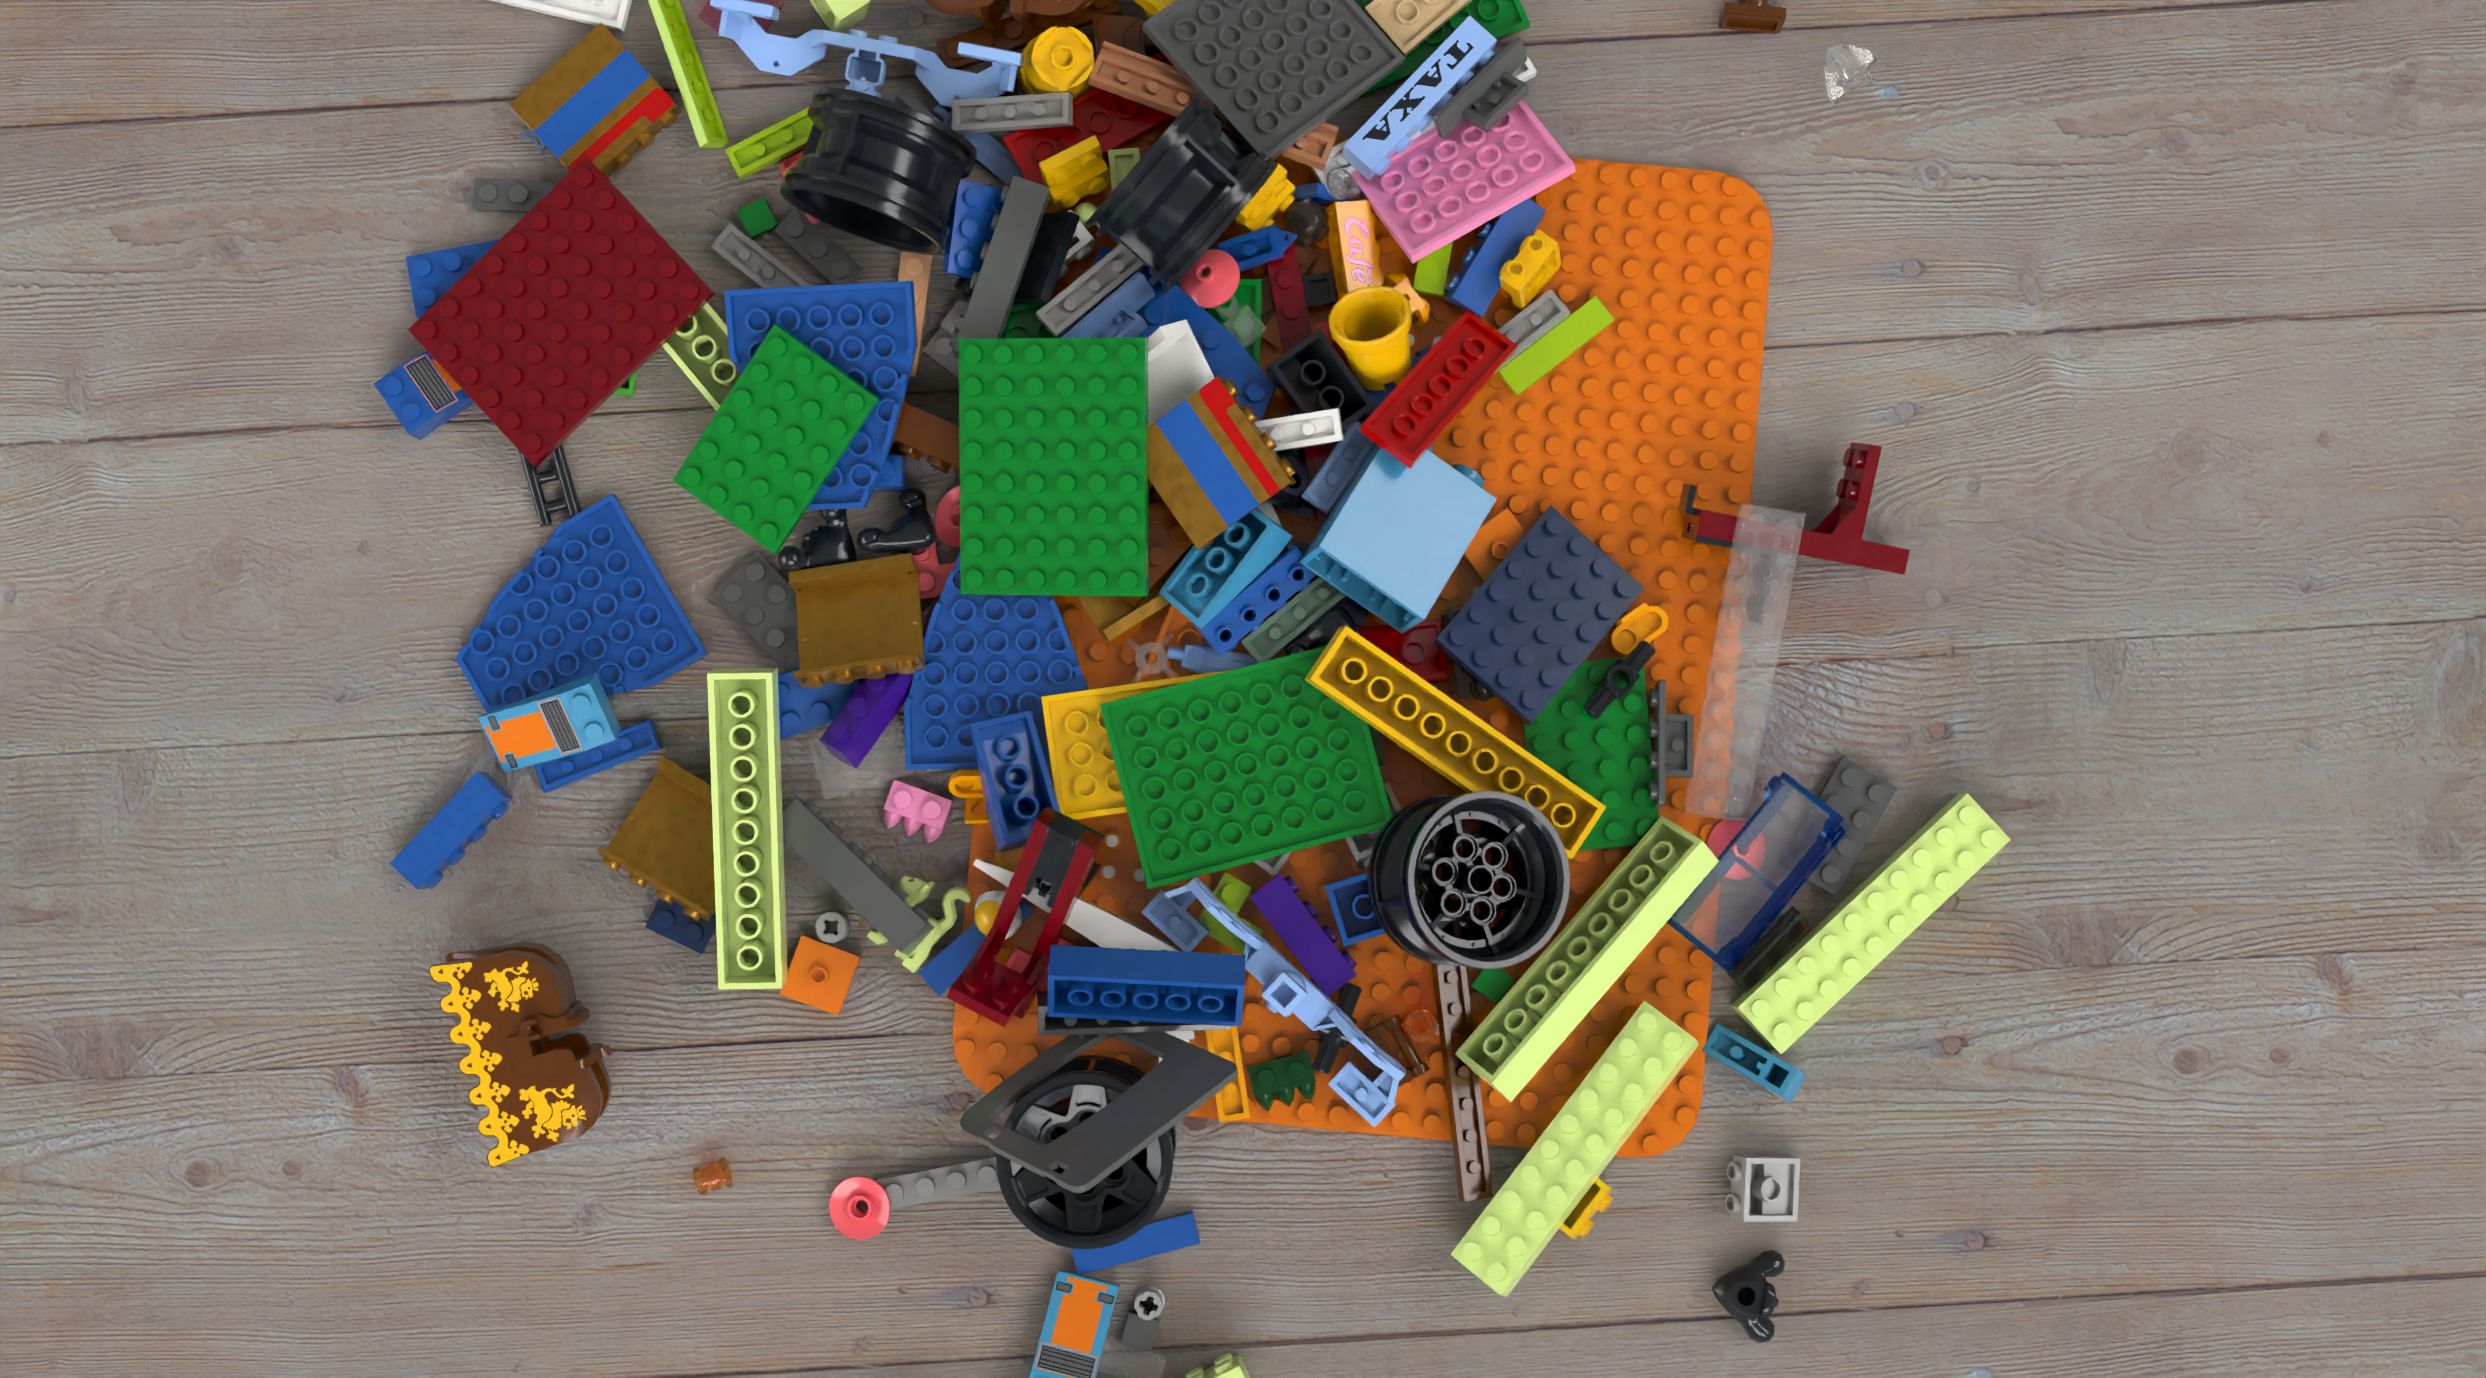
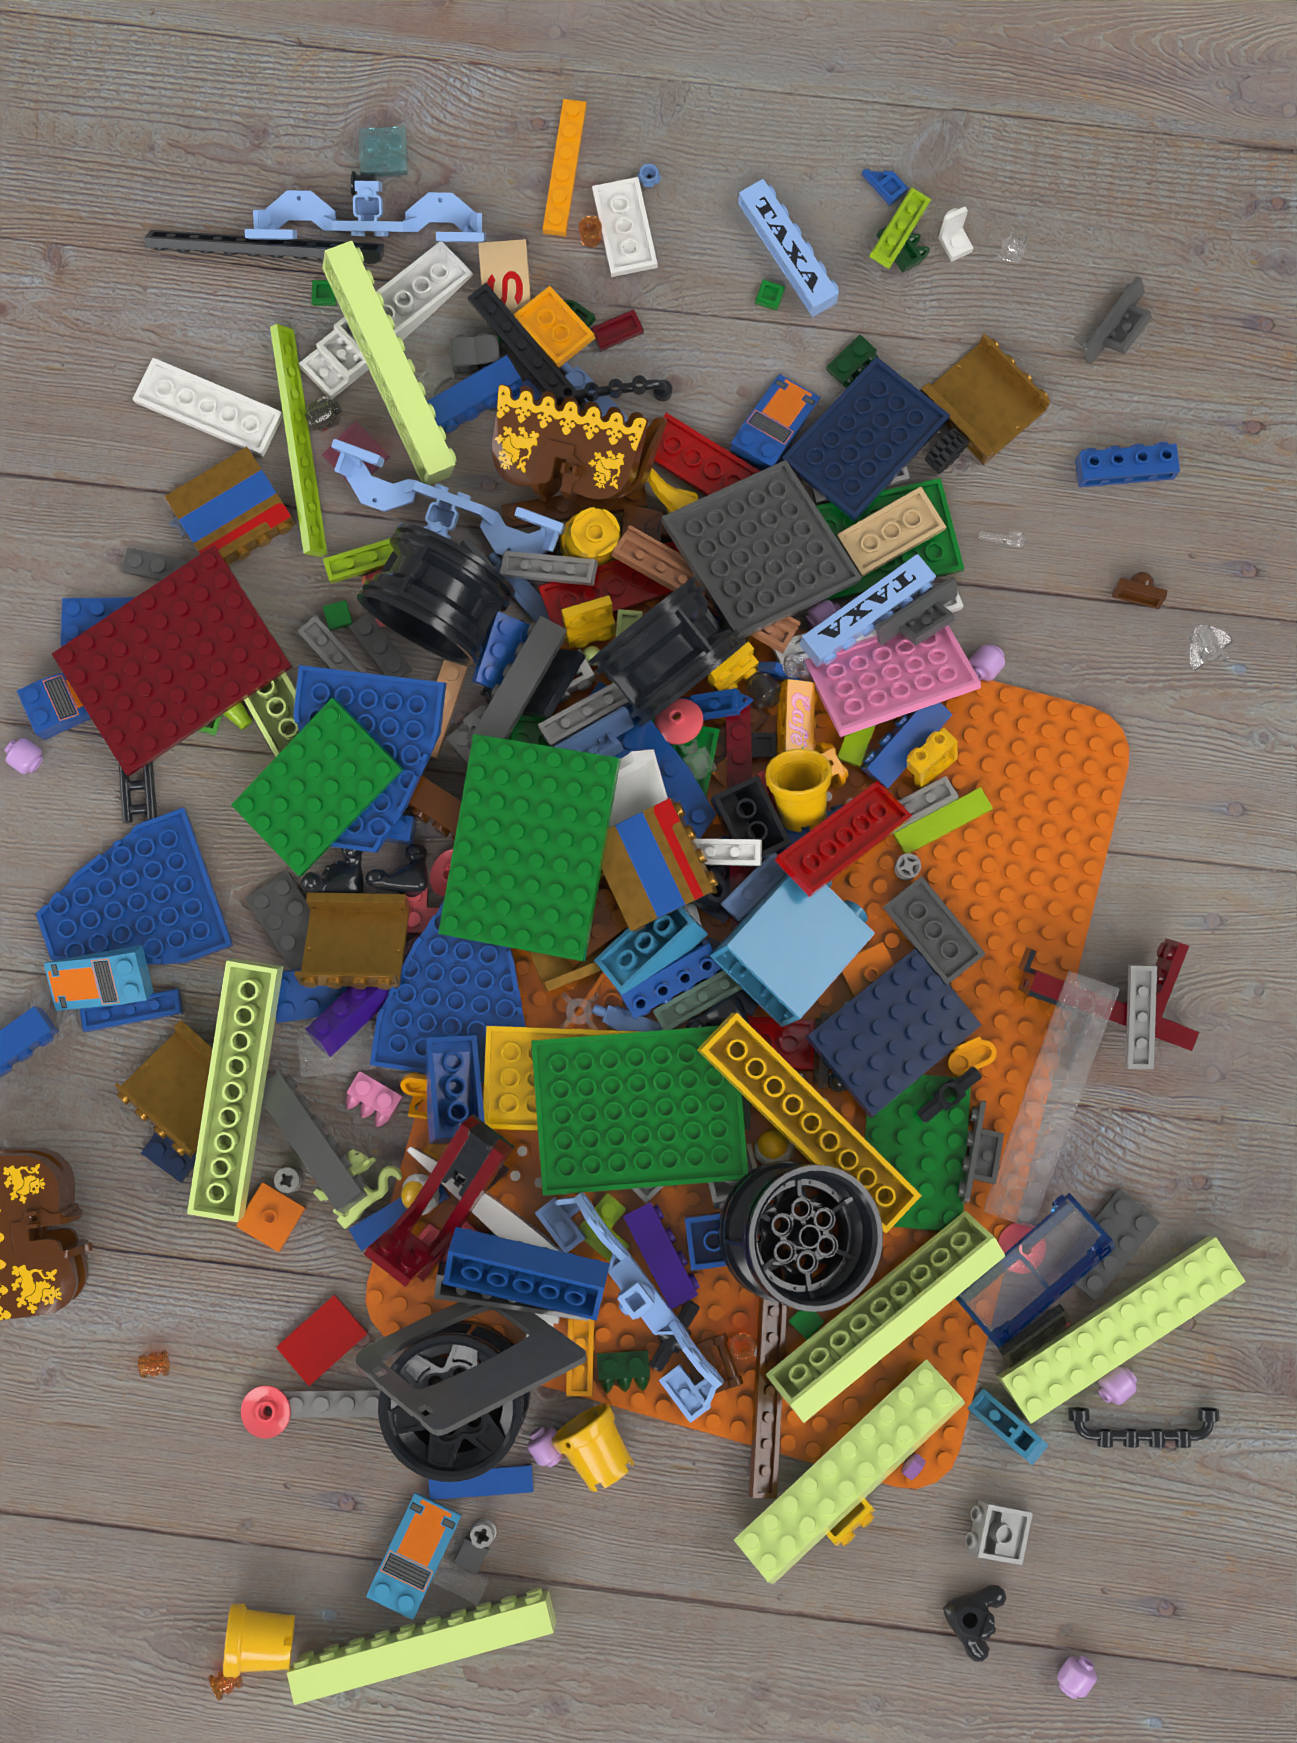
camera: 15 degrees right, 5 degrees down
(399, 464) = (23, 756): none -> lavender head
(659, 367) = (239, 716): none -> lime cone
(911, 1110) = (322, 1340): none -> red tile
(1206, 1186) = (542, 1448): none -> lavender head
(1264, 1176) = (594, 1447): none -> yellow piece
(1361, 111) = (821, 612): none -> lavender head
(1416, 781) = (773, 1147): none -> yellow hair
(1526, 406) = (912, 865): none -> light grey wheel
(1567, 482) = (933, 930): none -> dark grey plate
(1578, 137) = (987, 662): none -> lavender head
(1649, 1129) = (913, 1466): none -> medium lavender tile
(1836, 543) = (1141, 1016): none -> light grey plate
(1877, 990) = (1117, 1385): none -> lavender head
(1882, 1338) = (1077, 1677): none -> lavender head
(1931, 1042) = (1155, 1436): none -> black bar

